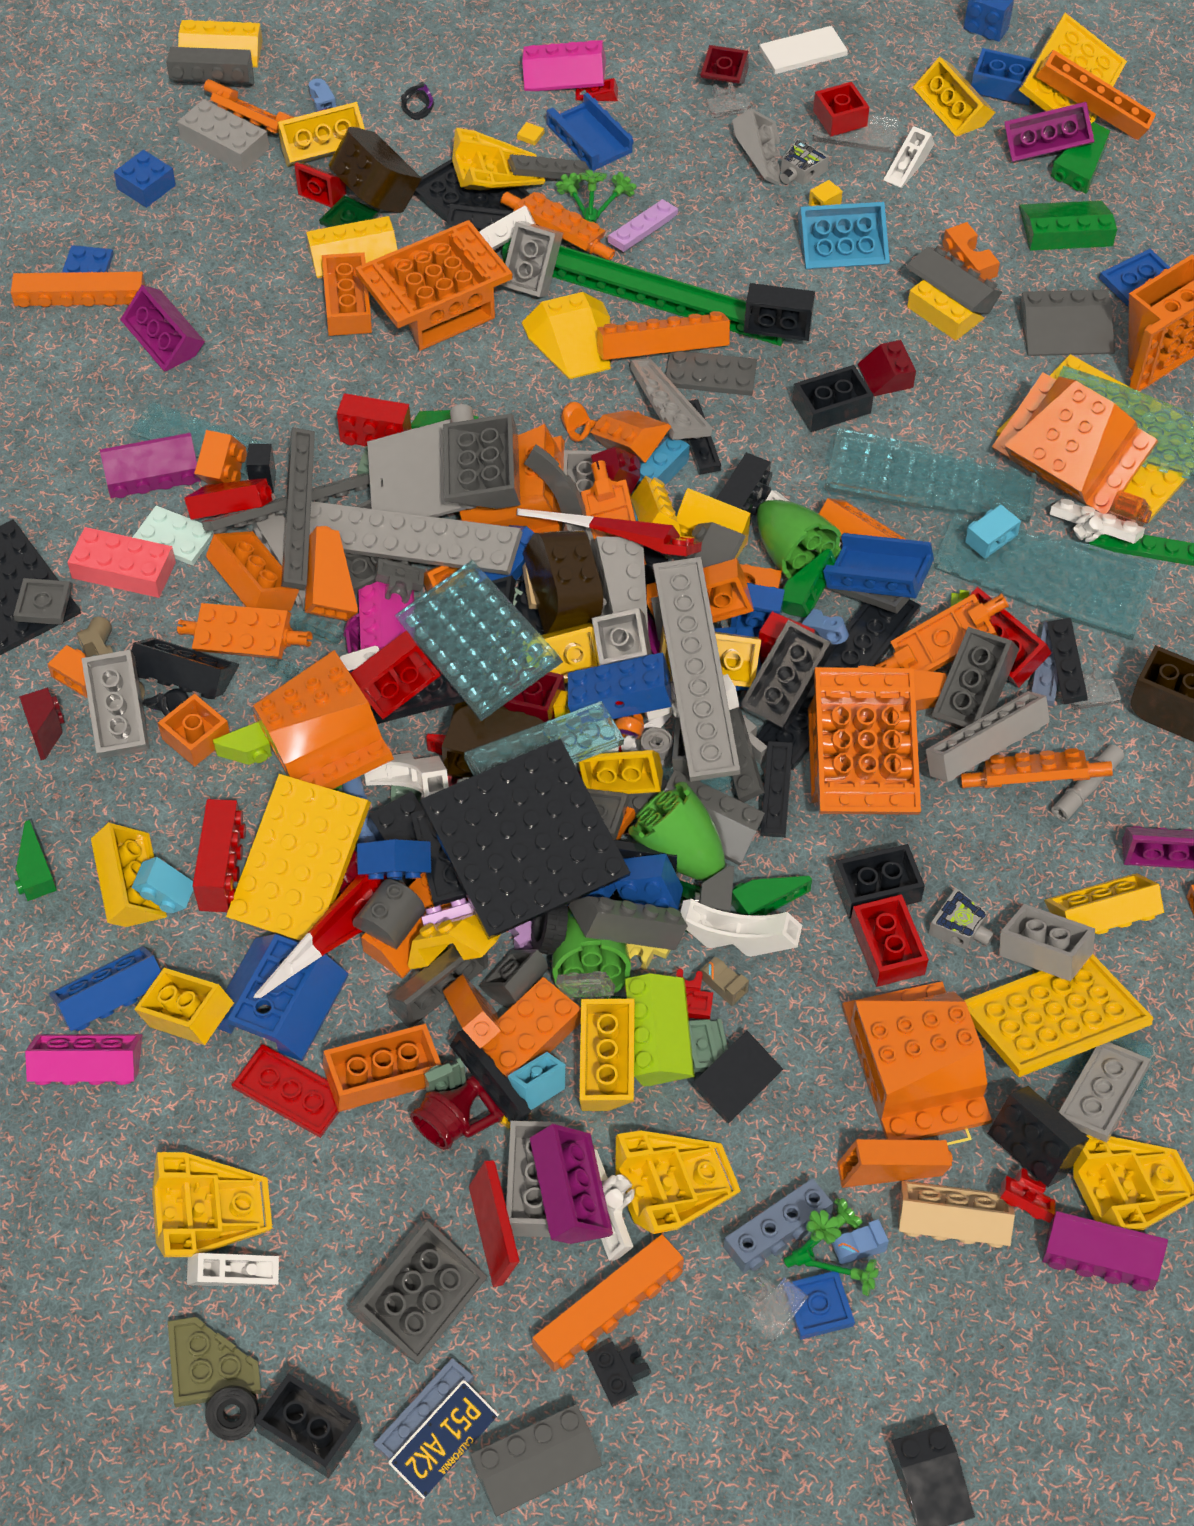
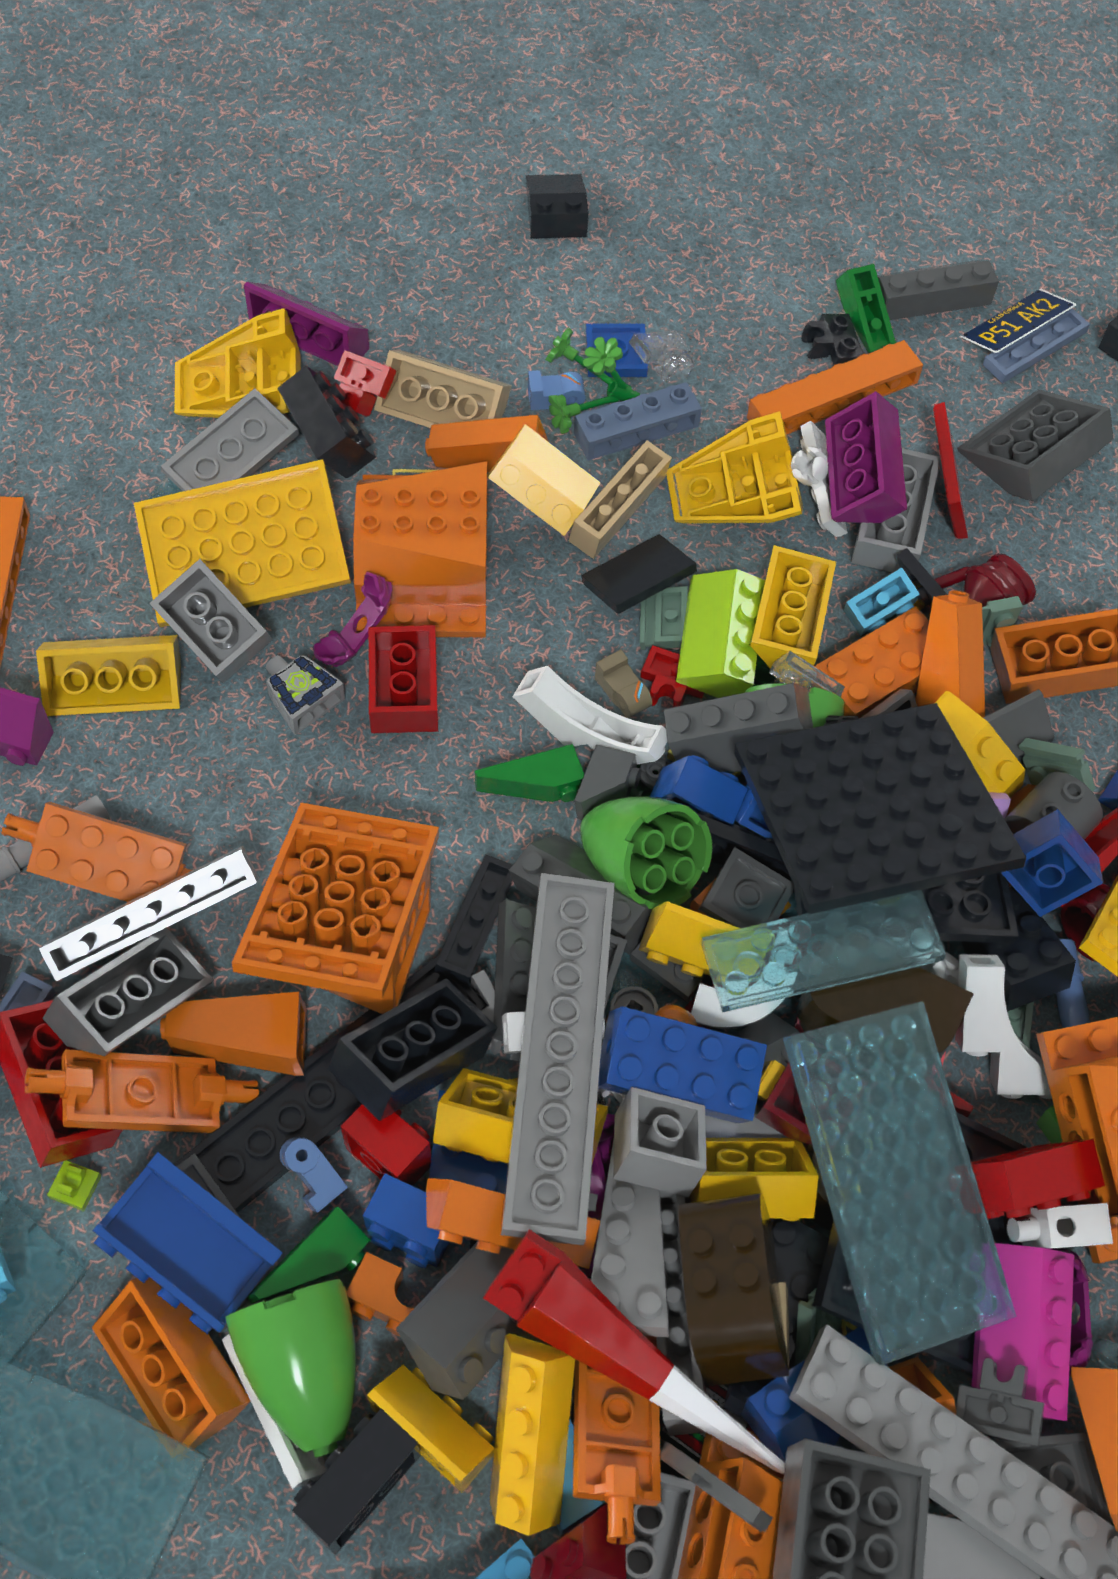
camera: 170 degrees left, 5 degrees up
(386, 961) = (1050, 757): none -> sand green plate
(599, 1412) = (865, 304): none -> green slope
(770, 1134) = (619, 499): none -> tan brick
(838, 1113) = (544, 480): none -> yellow slope
(878, 877) = (386, 756): black brick -> none
(948, 962) = (343, 646): none -> magenta piece

